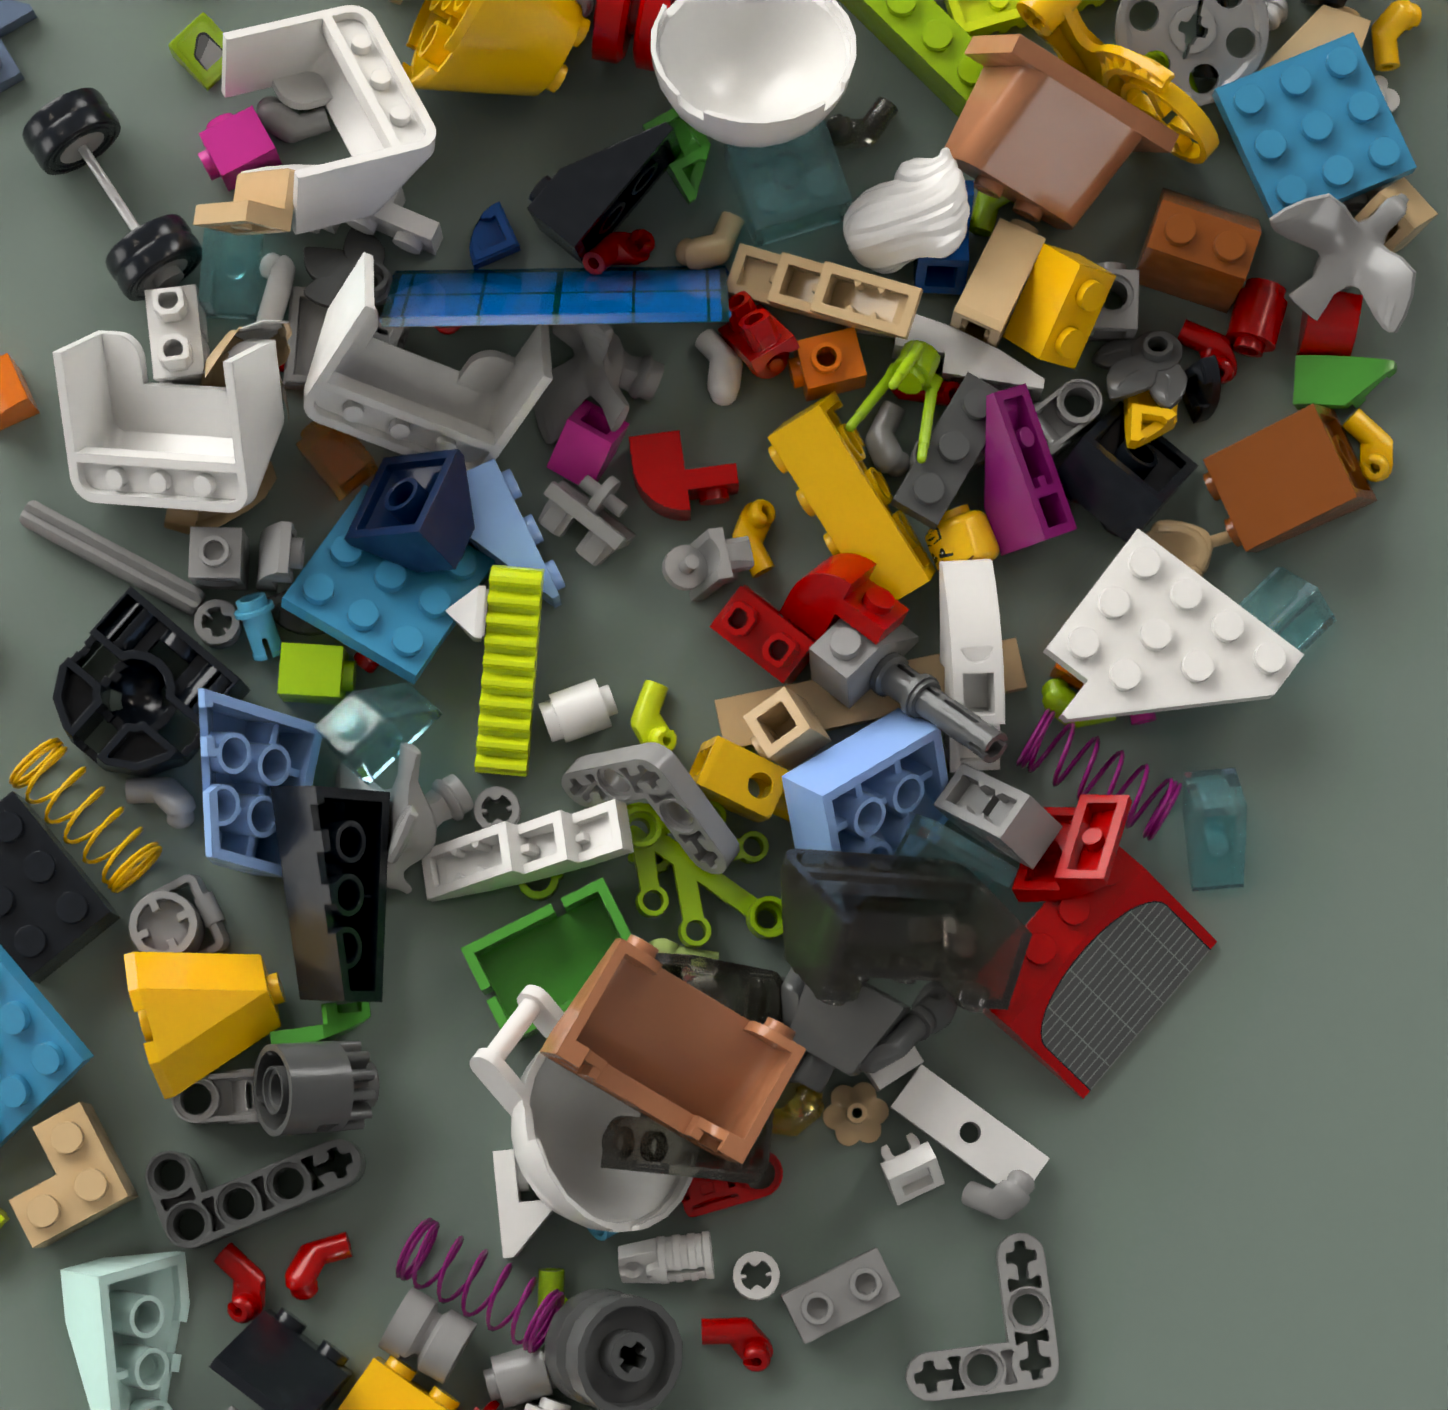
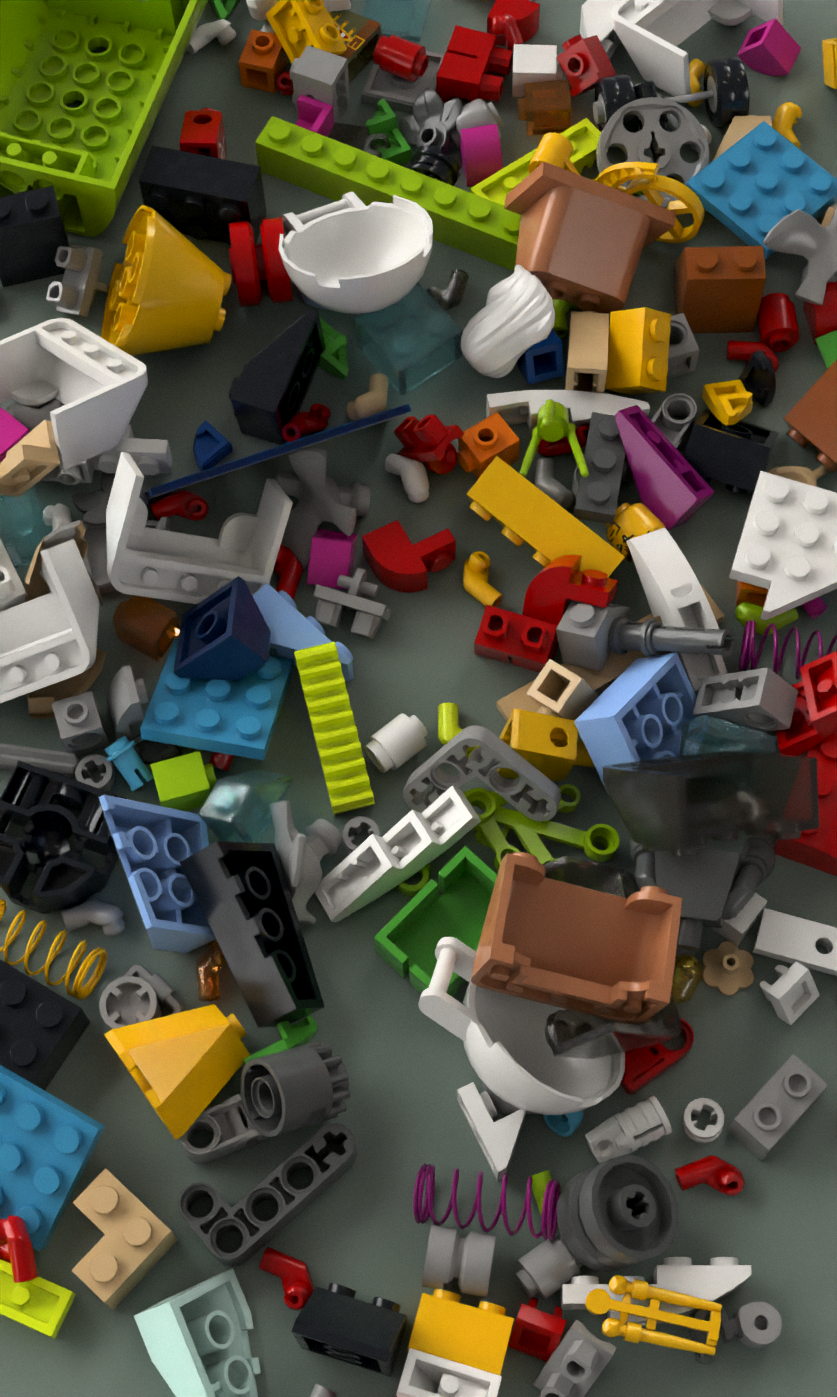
camera: 15 degrees left, 15 degrees down
(267, 912) = (207, 972): none -> clear orange arm
(309, 1261) = (339, 1238): red arm -> none
(471, 612) = (290, 694): white slope -> none
(532, 443) = (289, 570): none -> red arm
(707, 563) = (455, 602): light grey hips -> none
(825, 291) = (472, 393): tan slope -> none
(1138, 368) = (712, 374): dark grey plate -> none

